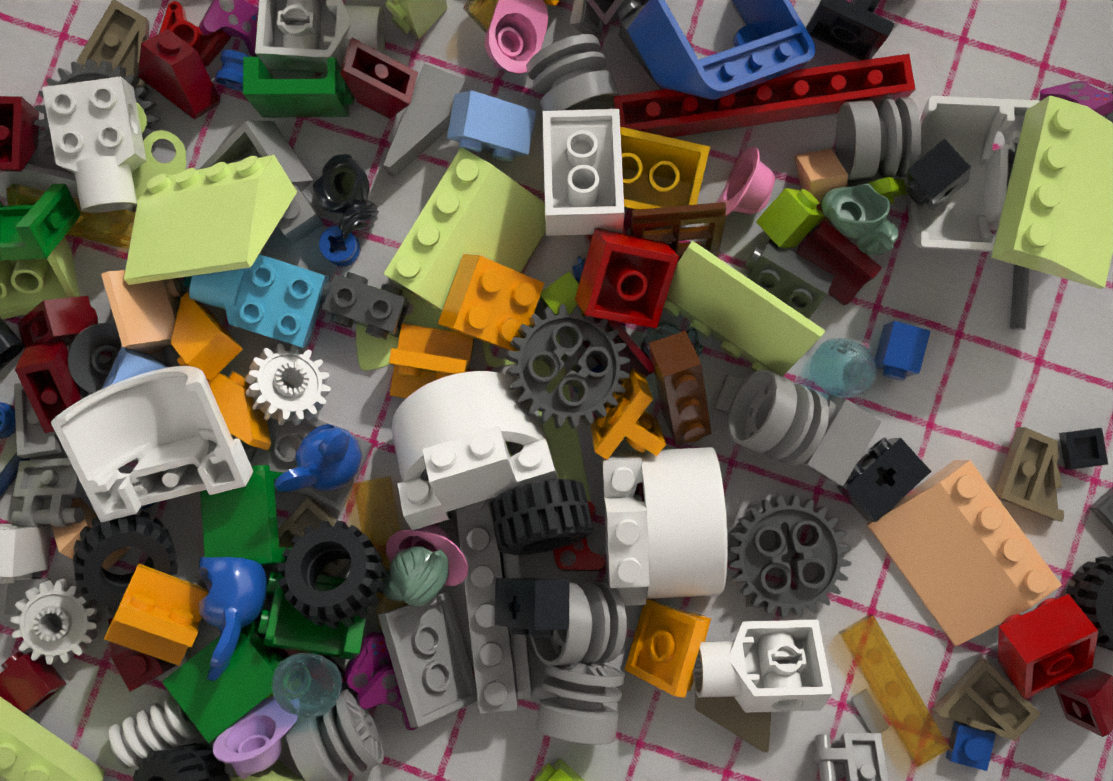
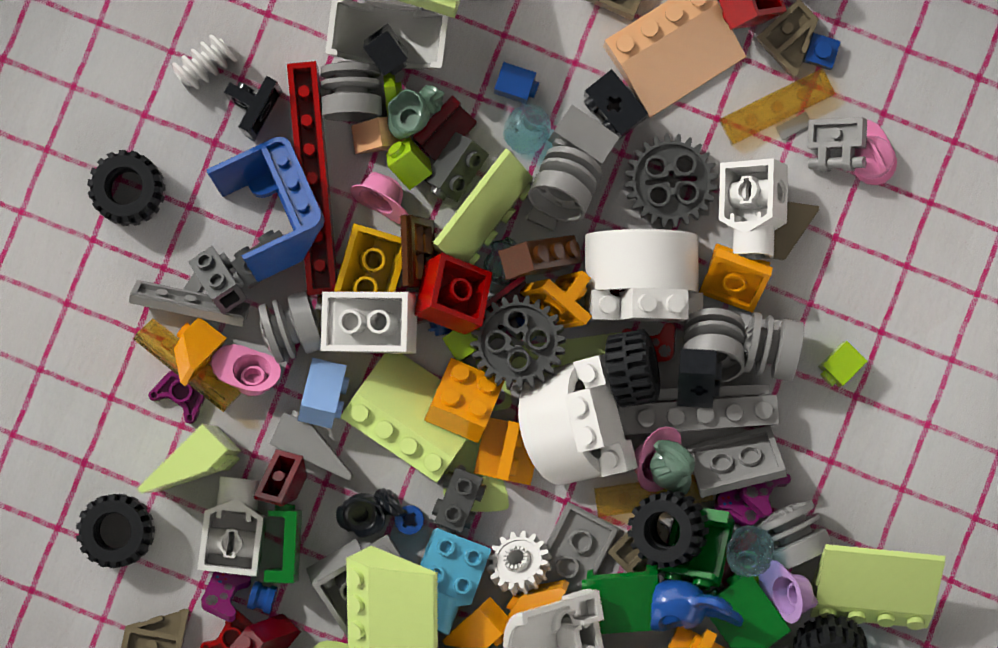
camera: 90 degrees left, 0 degrees up
(324, 460) = (579, 534): blue piece -> none

